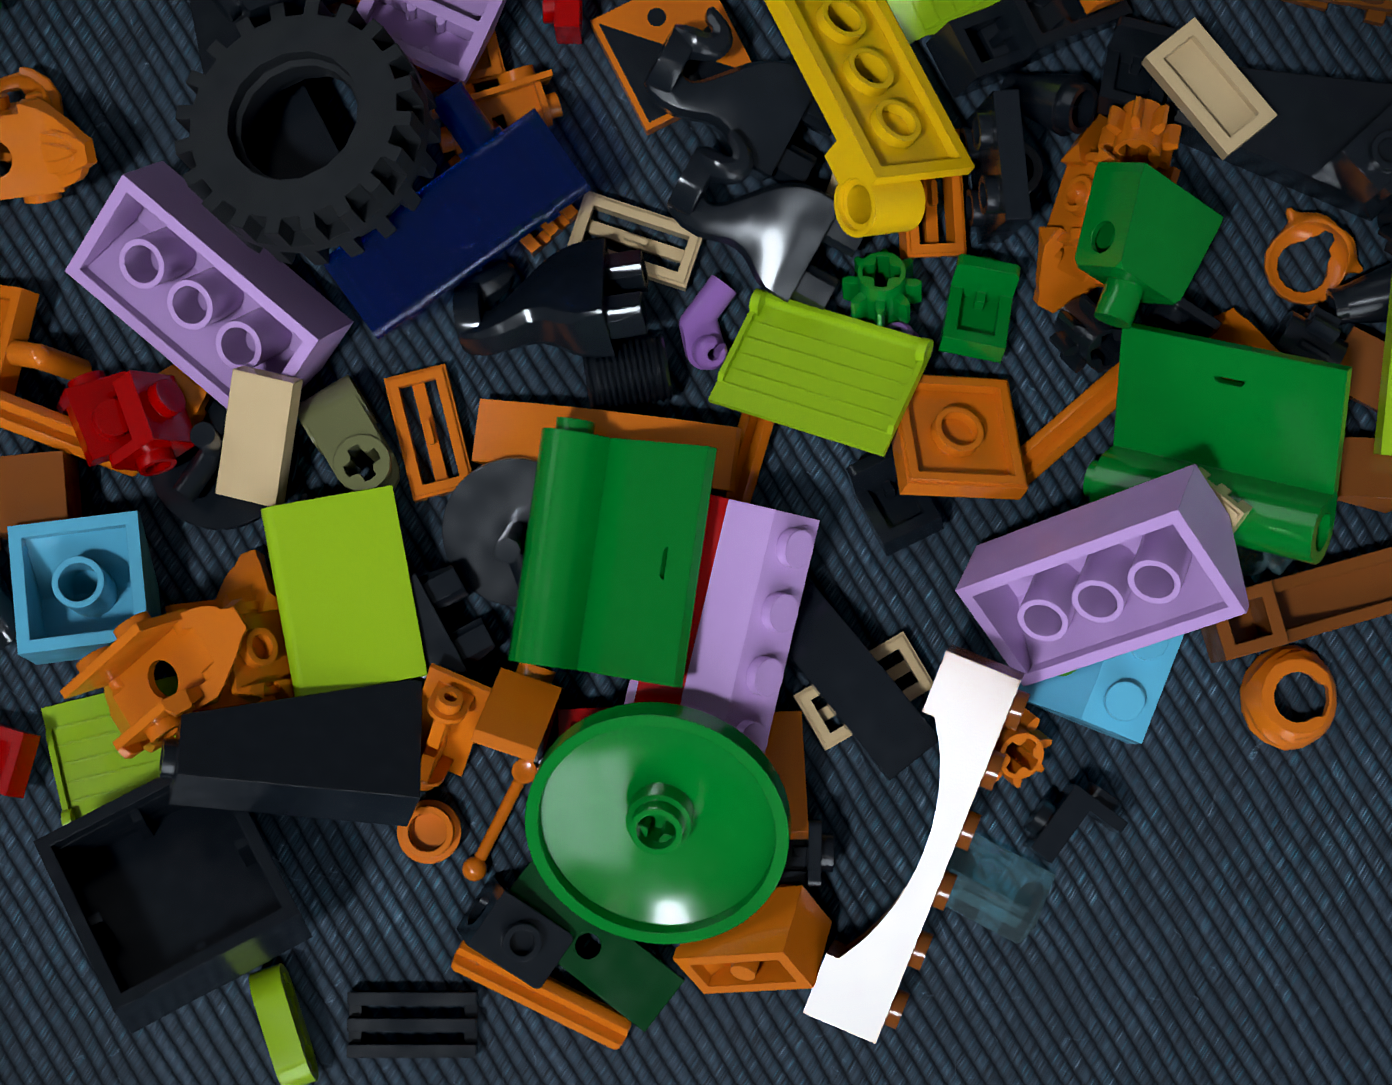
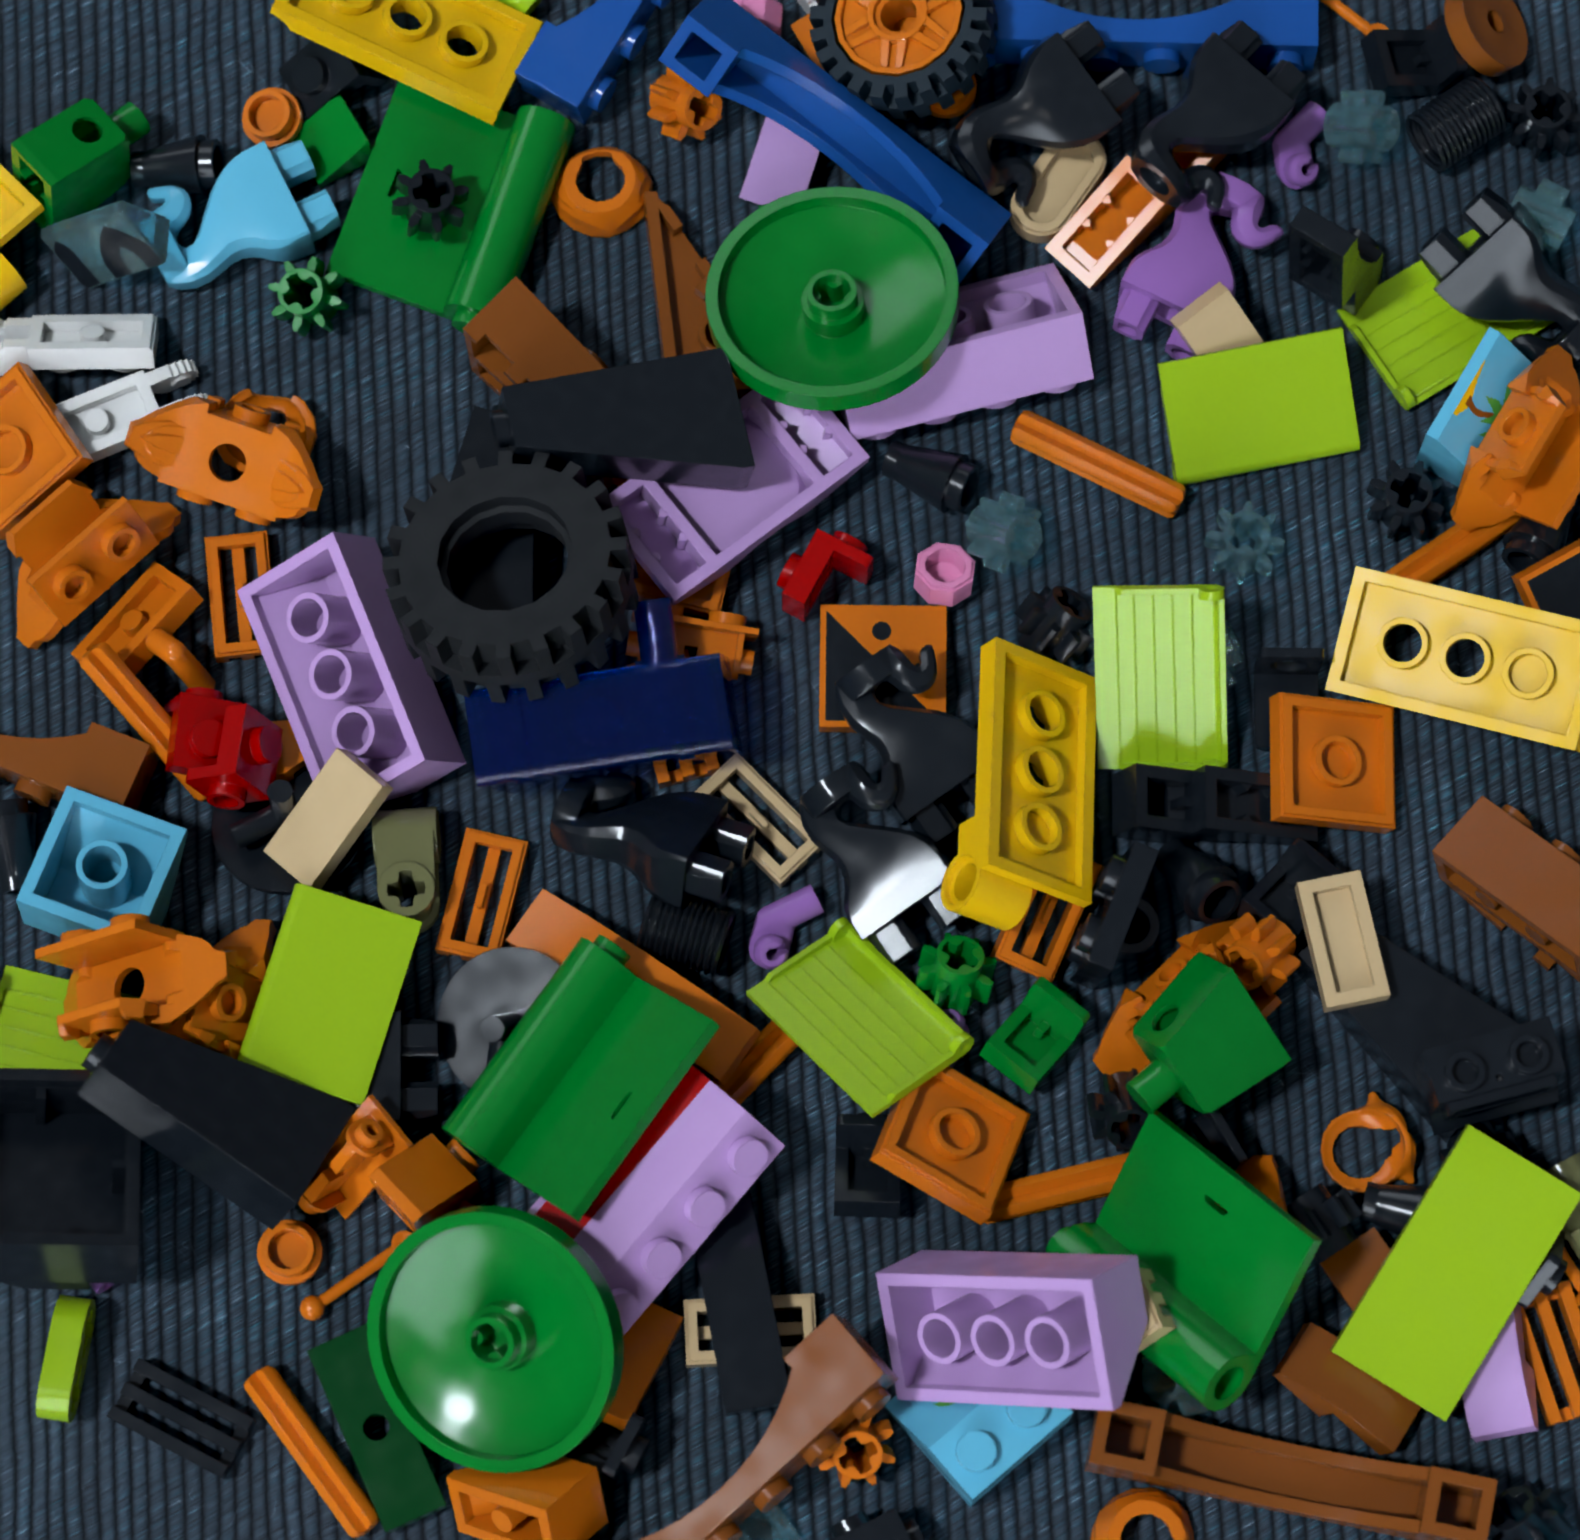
camera: 30 degrees right, 10 degrees down
(101, 317) = (247, 647): none -> orange tile
(513, 934) = (316, 1383): black bracket -> none

